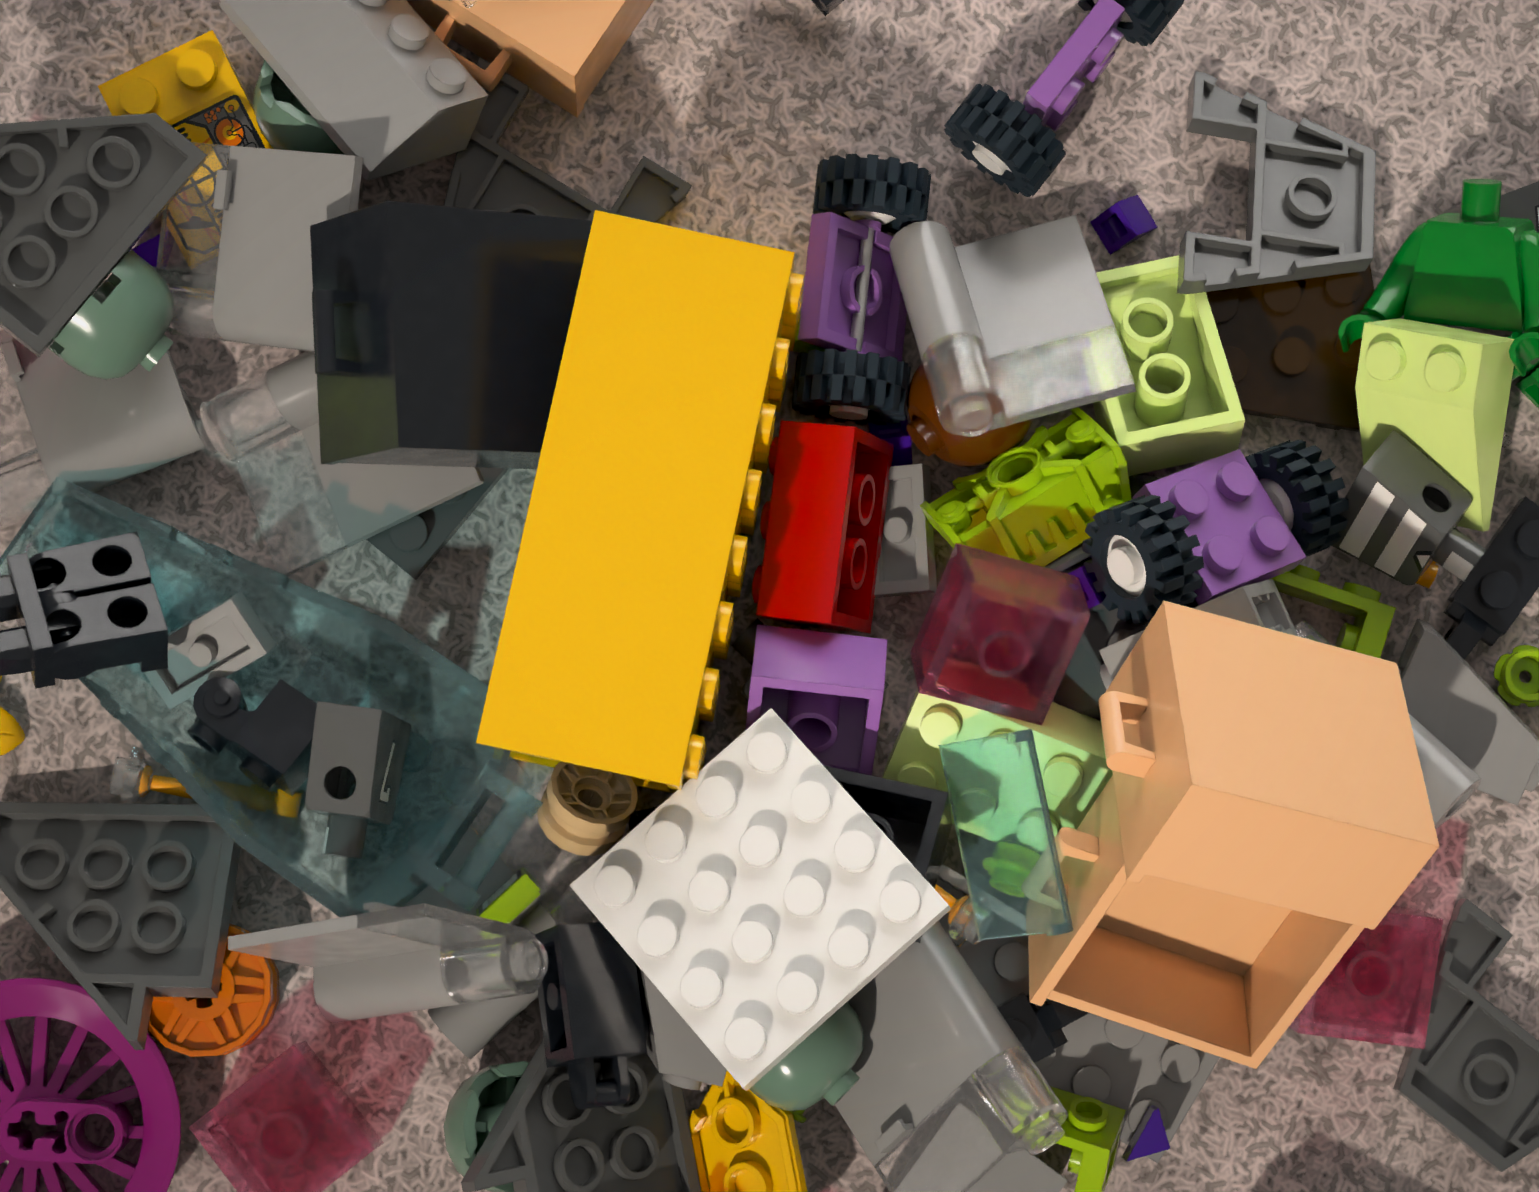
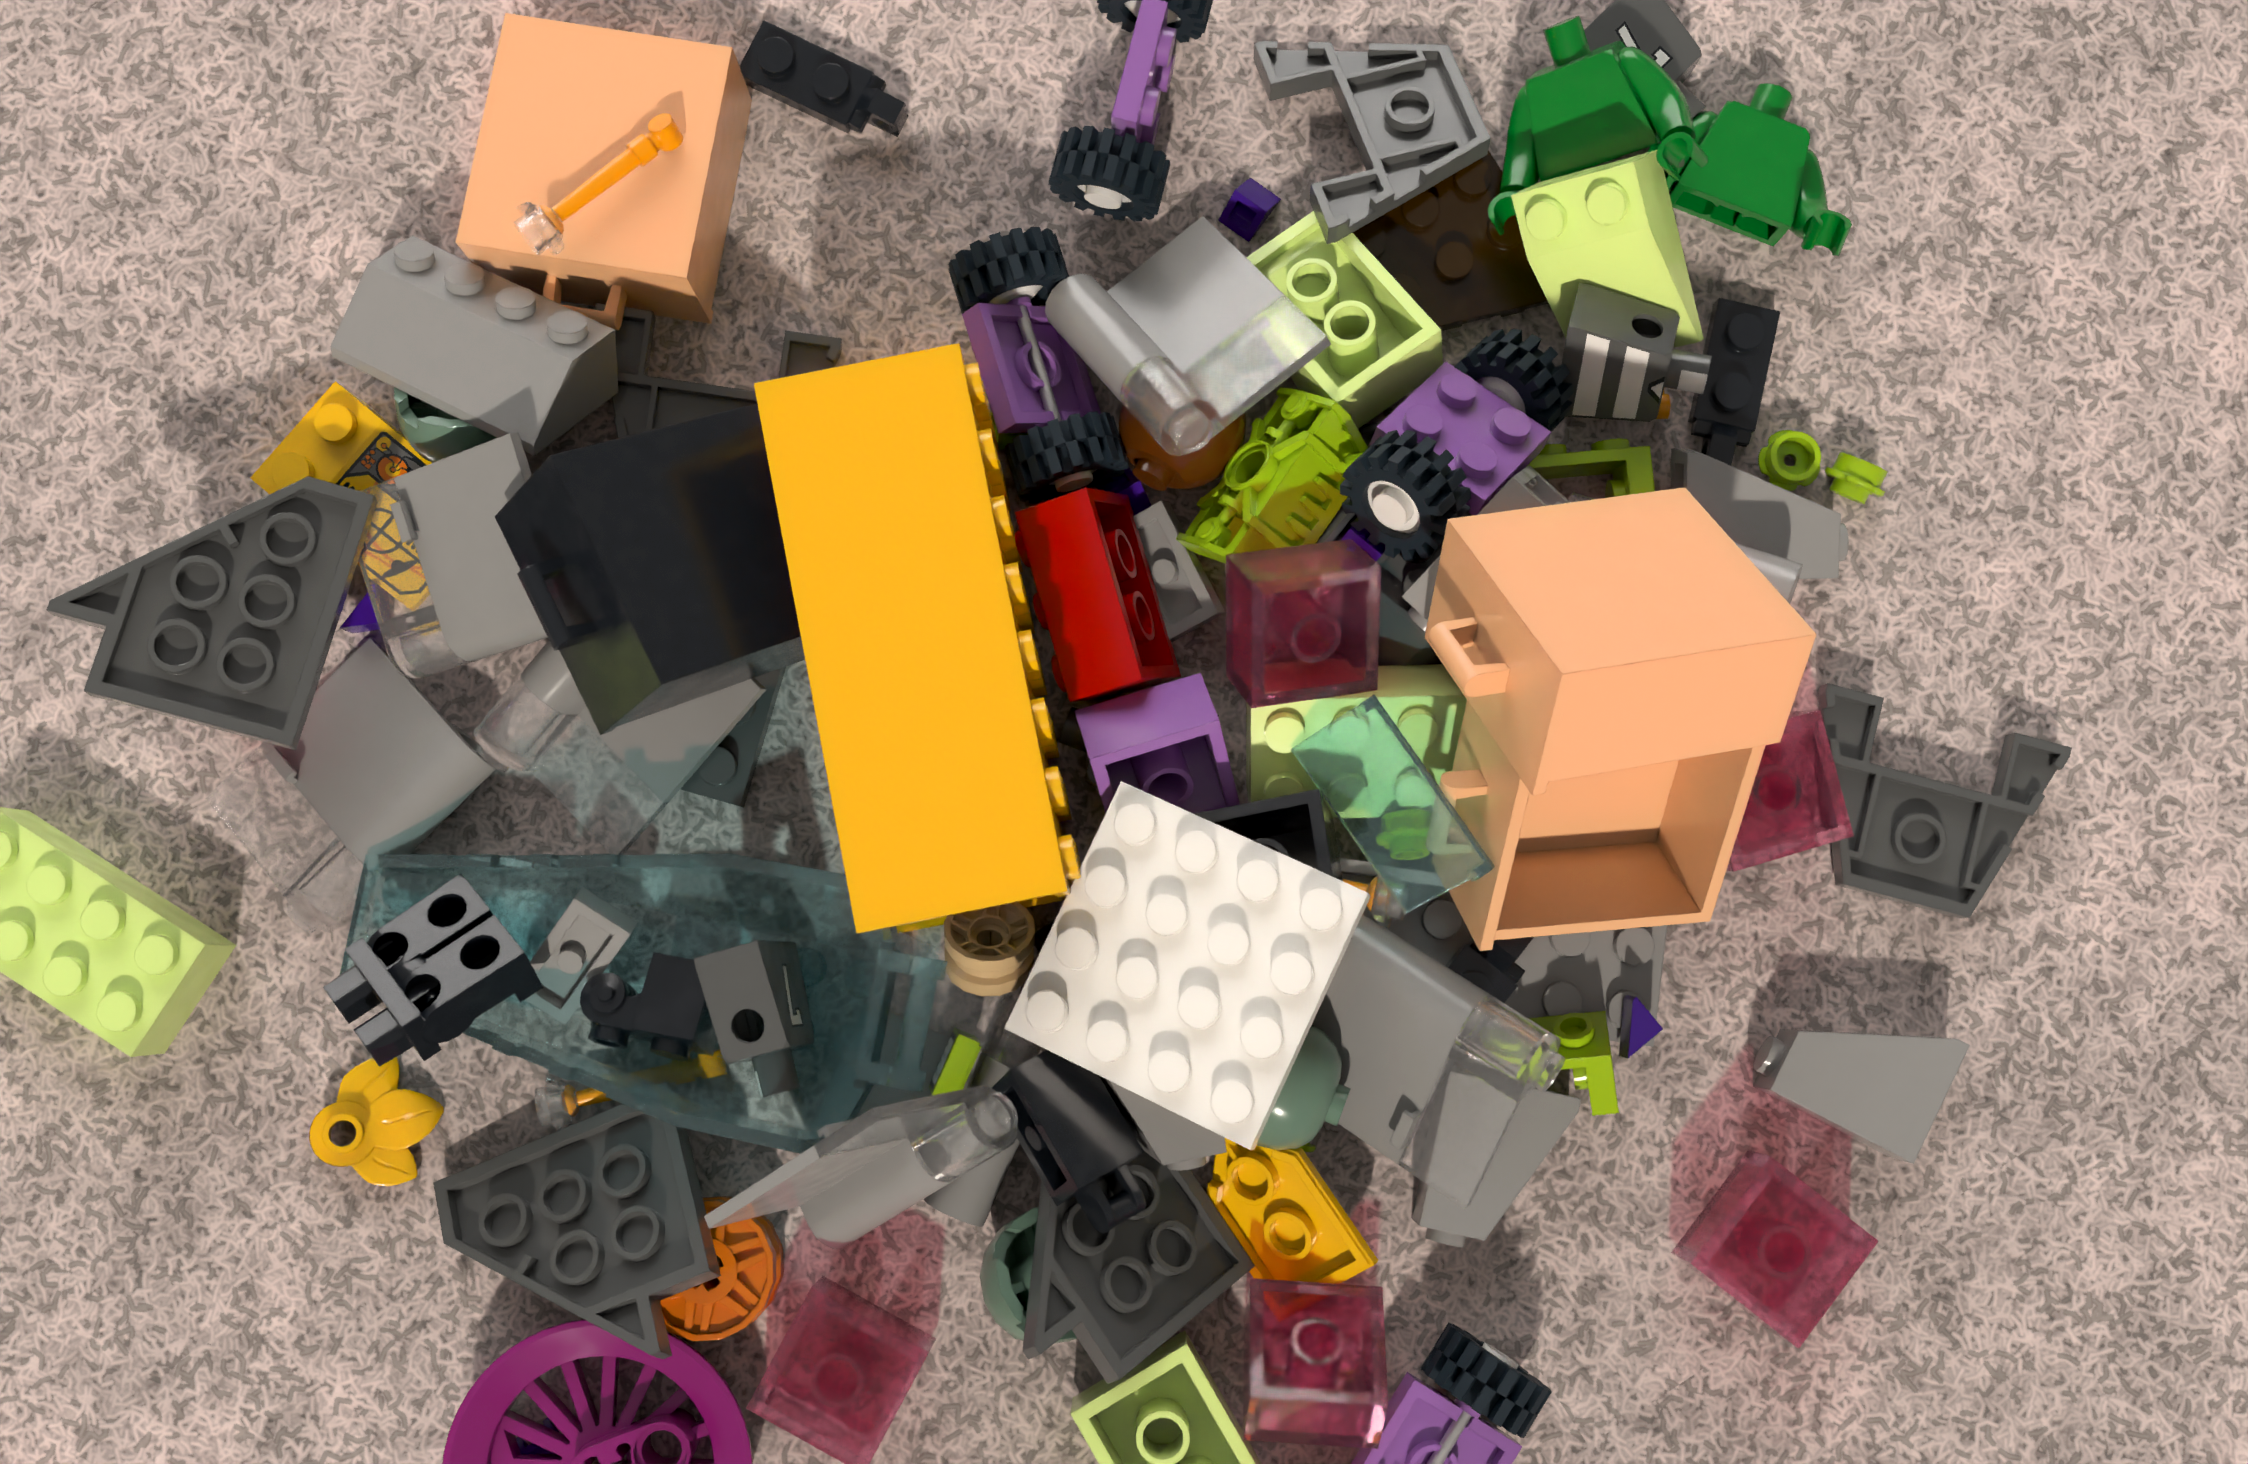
camera: 15 degrees left, 0 degrees up
(120, 323) = (361, 687): sand green cylinder -> none

